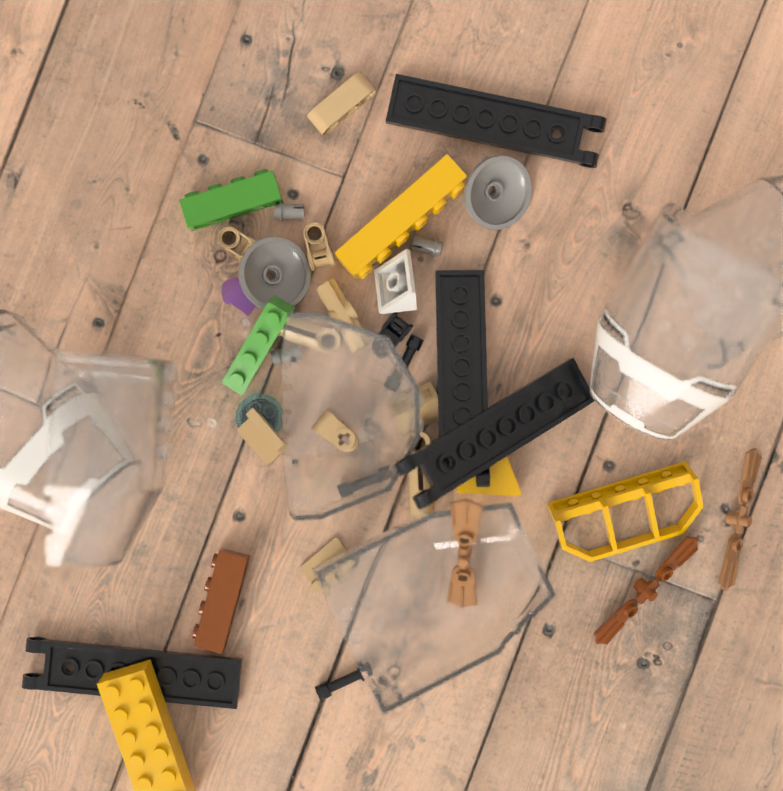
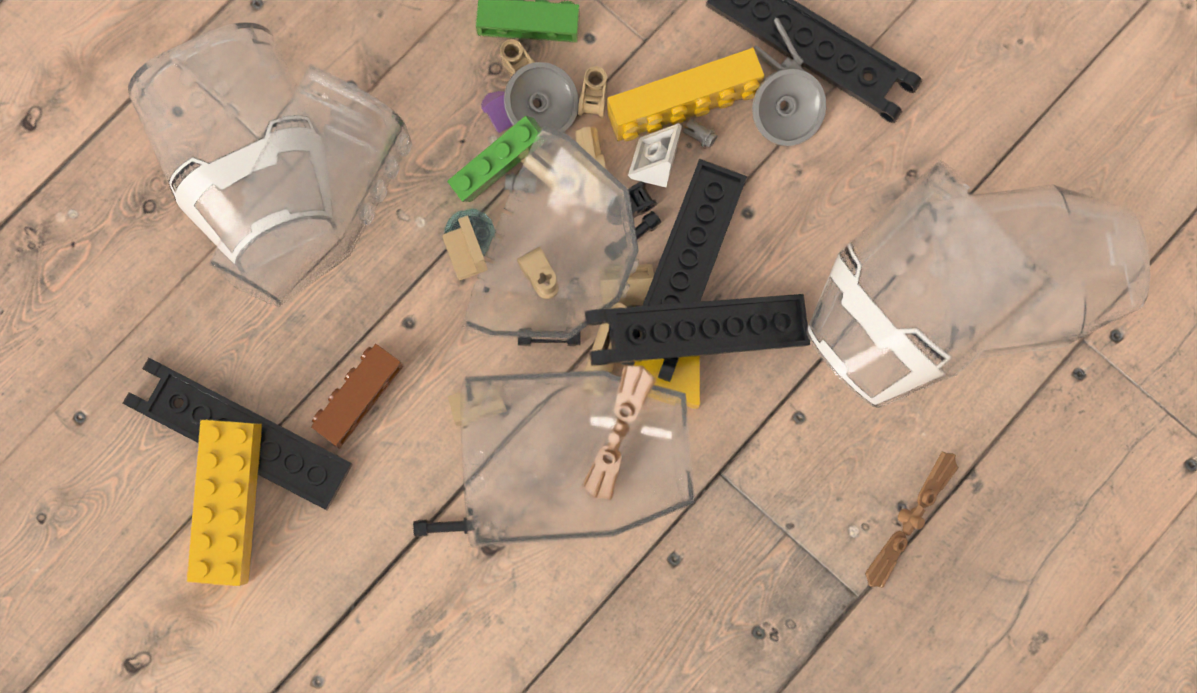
camera: 20 degrees right, 10 degrees down
(289, 211) = (579, 50): light grey pin -> none
(481, 152) = (788, 63): none -> light grey plant
(622, 491) = (810, 446): yellow plate -> none
(646, 590) = (744, 575): dark orange piece -> none

